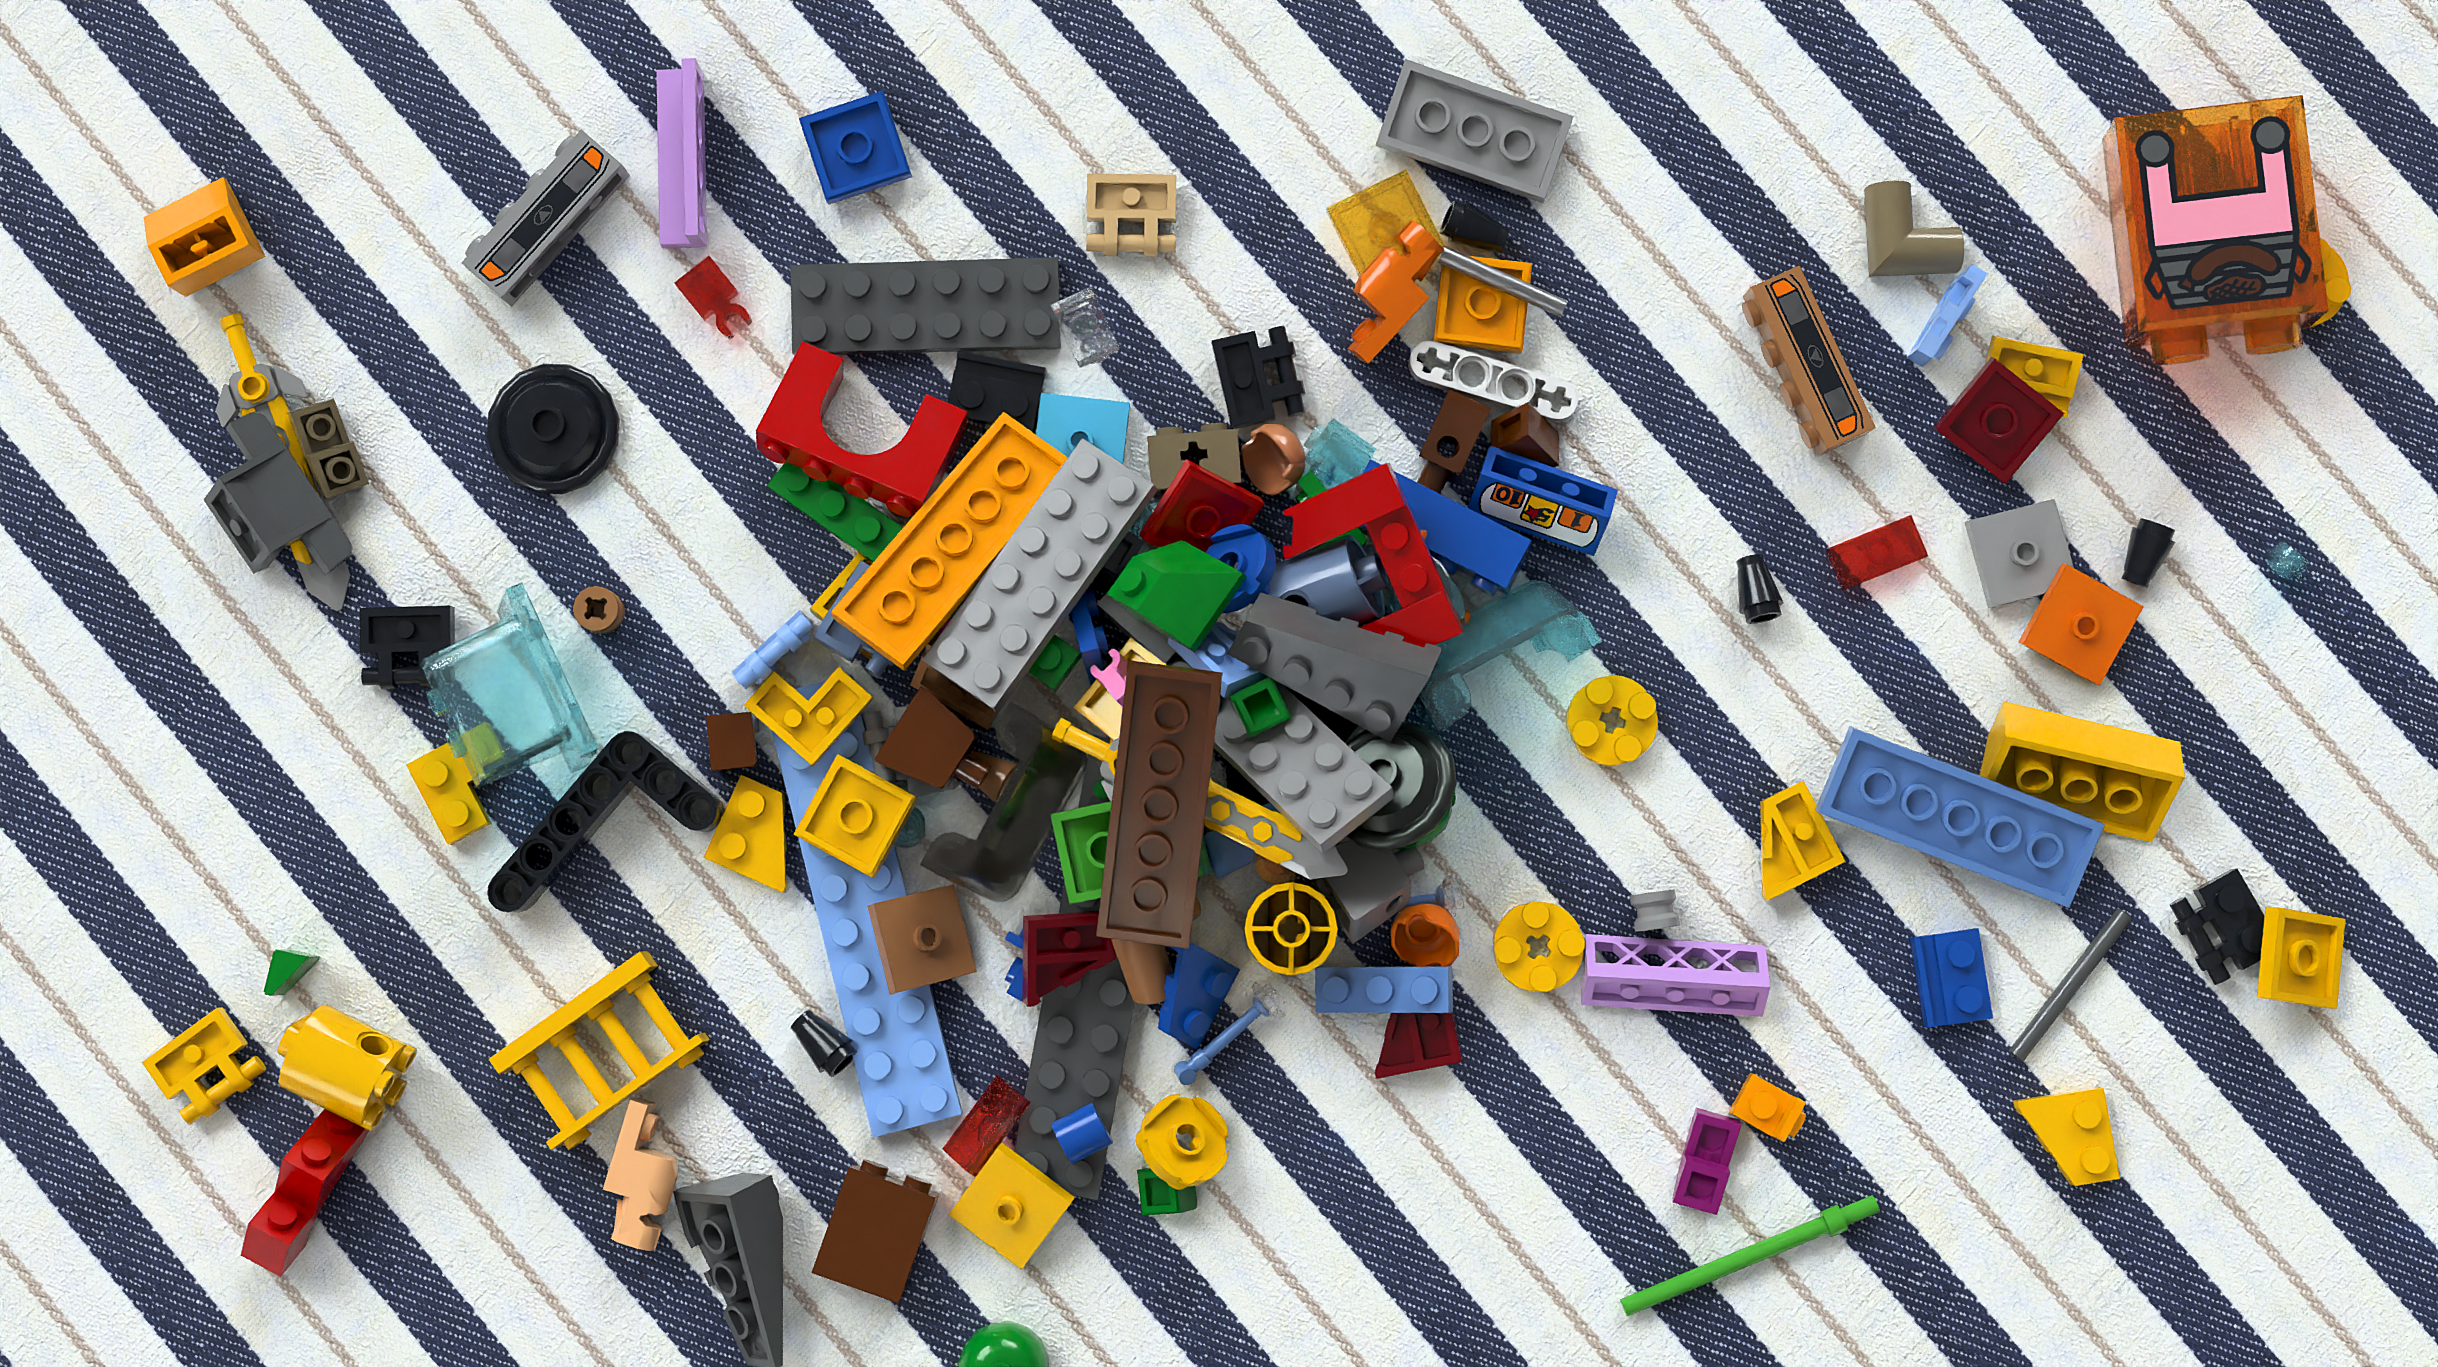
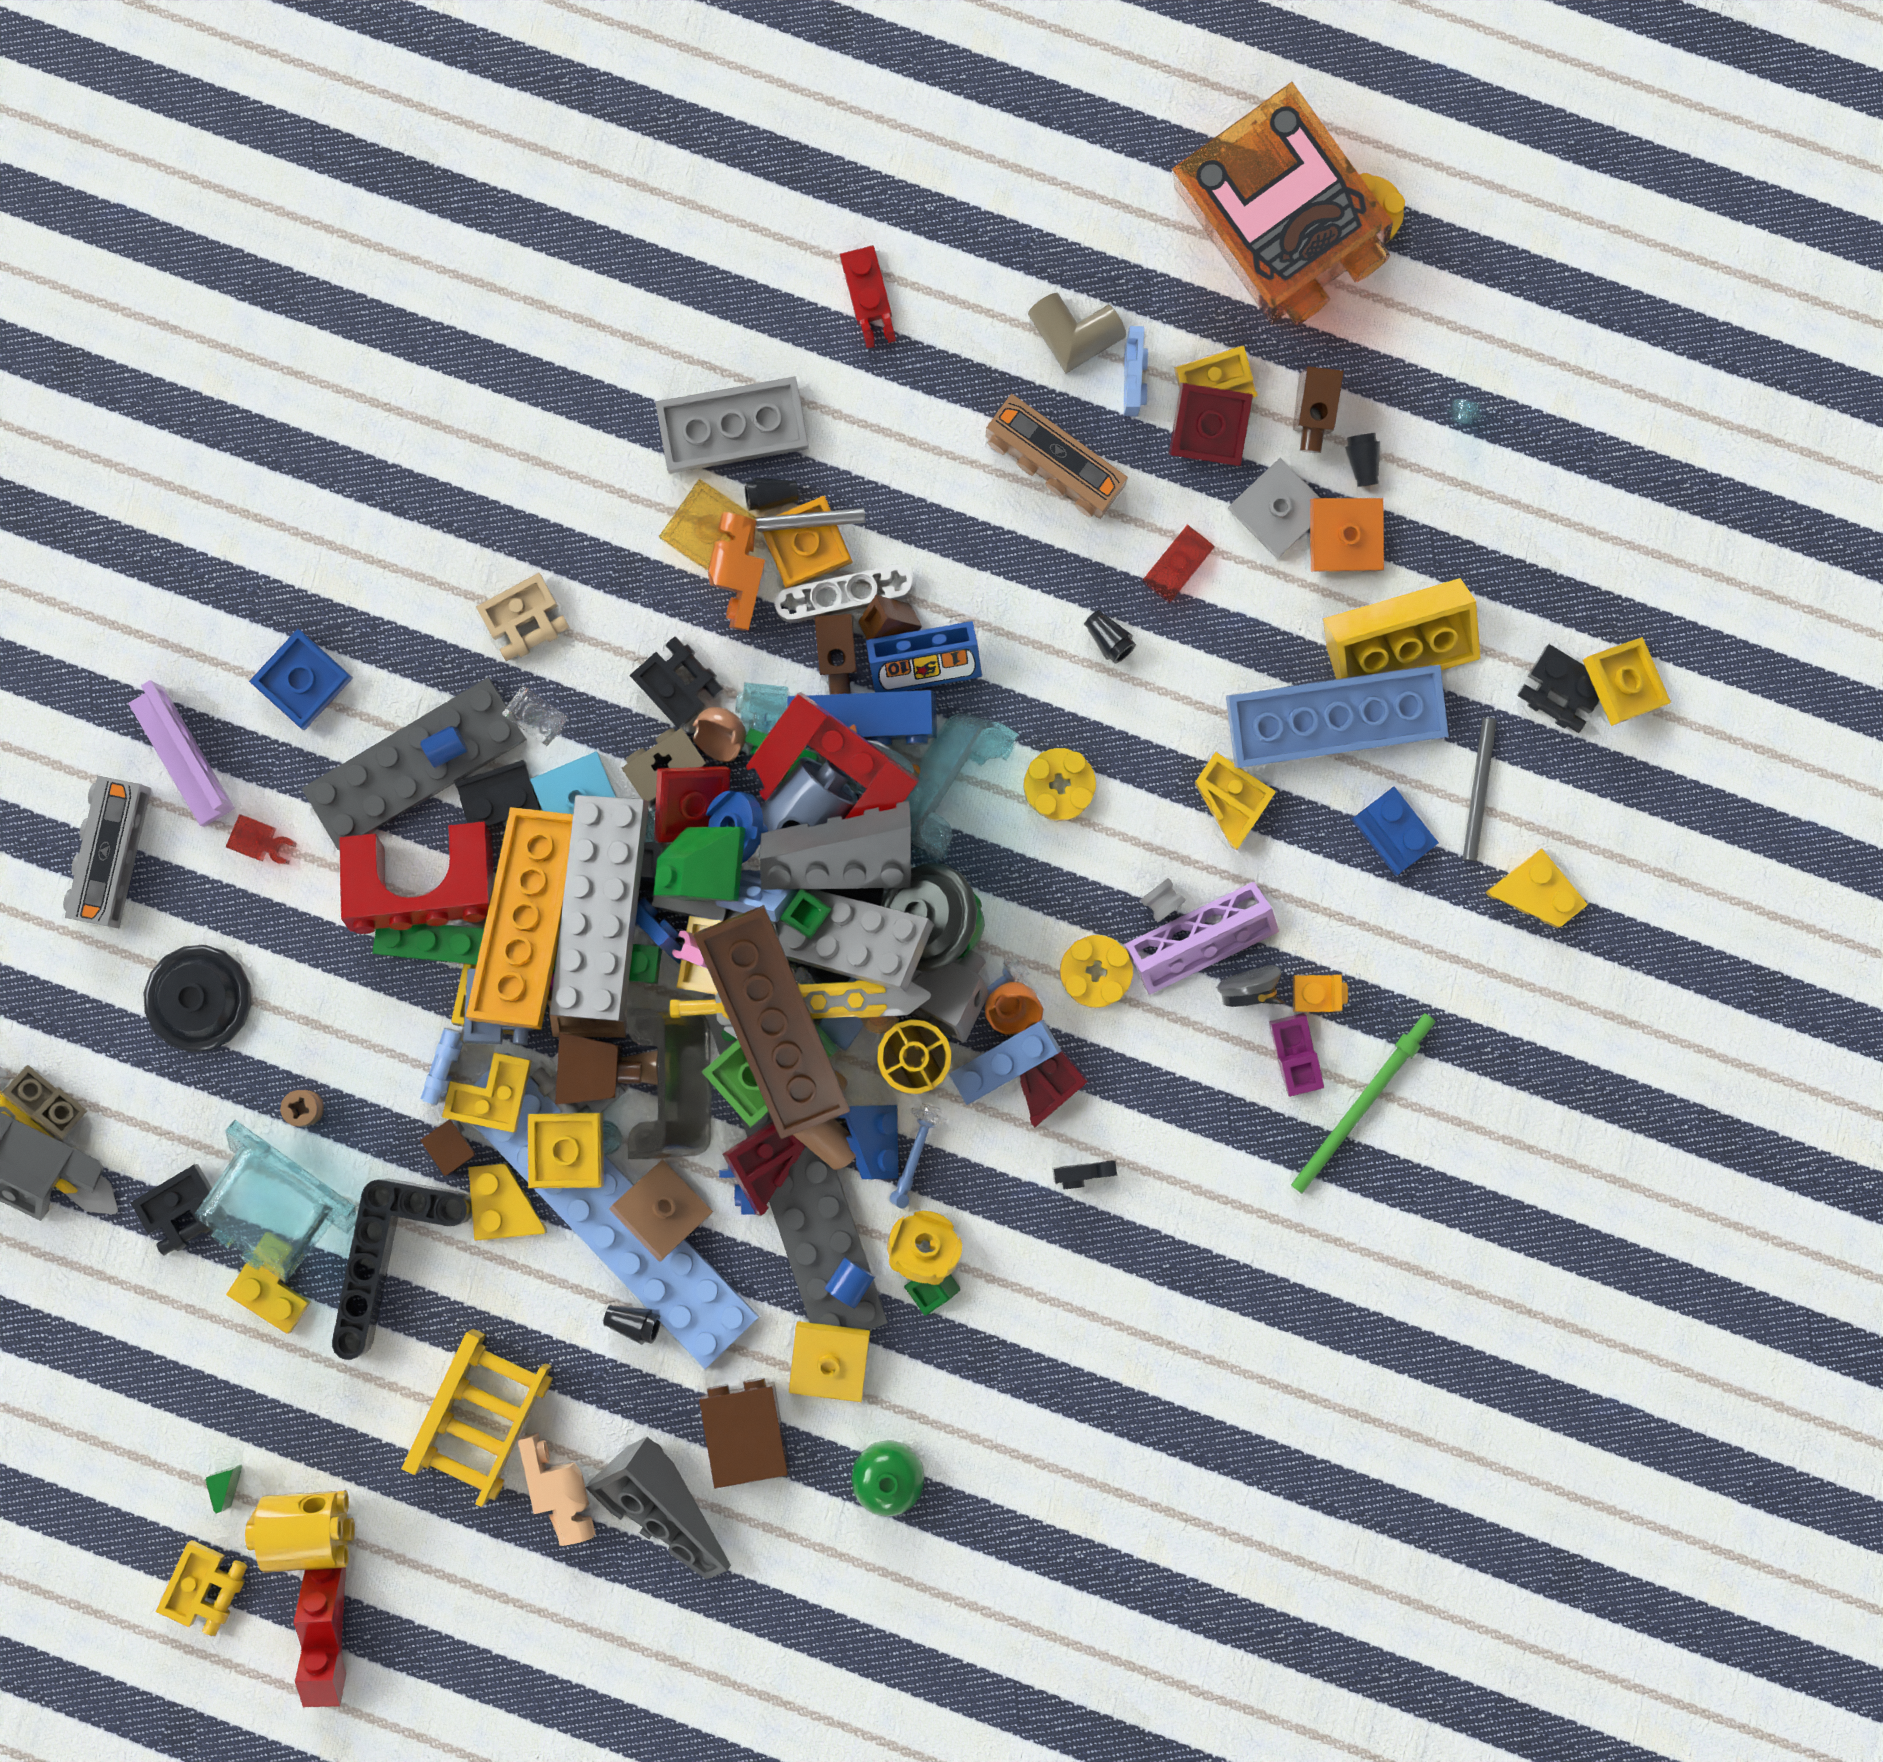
camera: 25 degrees left, 0 degrees up
(969, 305) = (444, 746): none -> blue brick
(986, 1125) = (780, 1315): clear red plate -> none
(1390, 1155) = (1074, 1175): none -> black plate
(1699, 1060) = (1251, 987): none -> dark grey piece
(1702, 68) = (867, 292): none -> red hinge
(2140, 451) = (1318, 390): none -> reddish brown torso

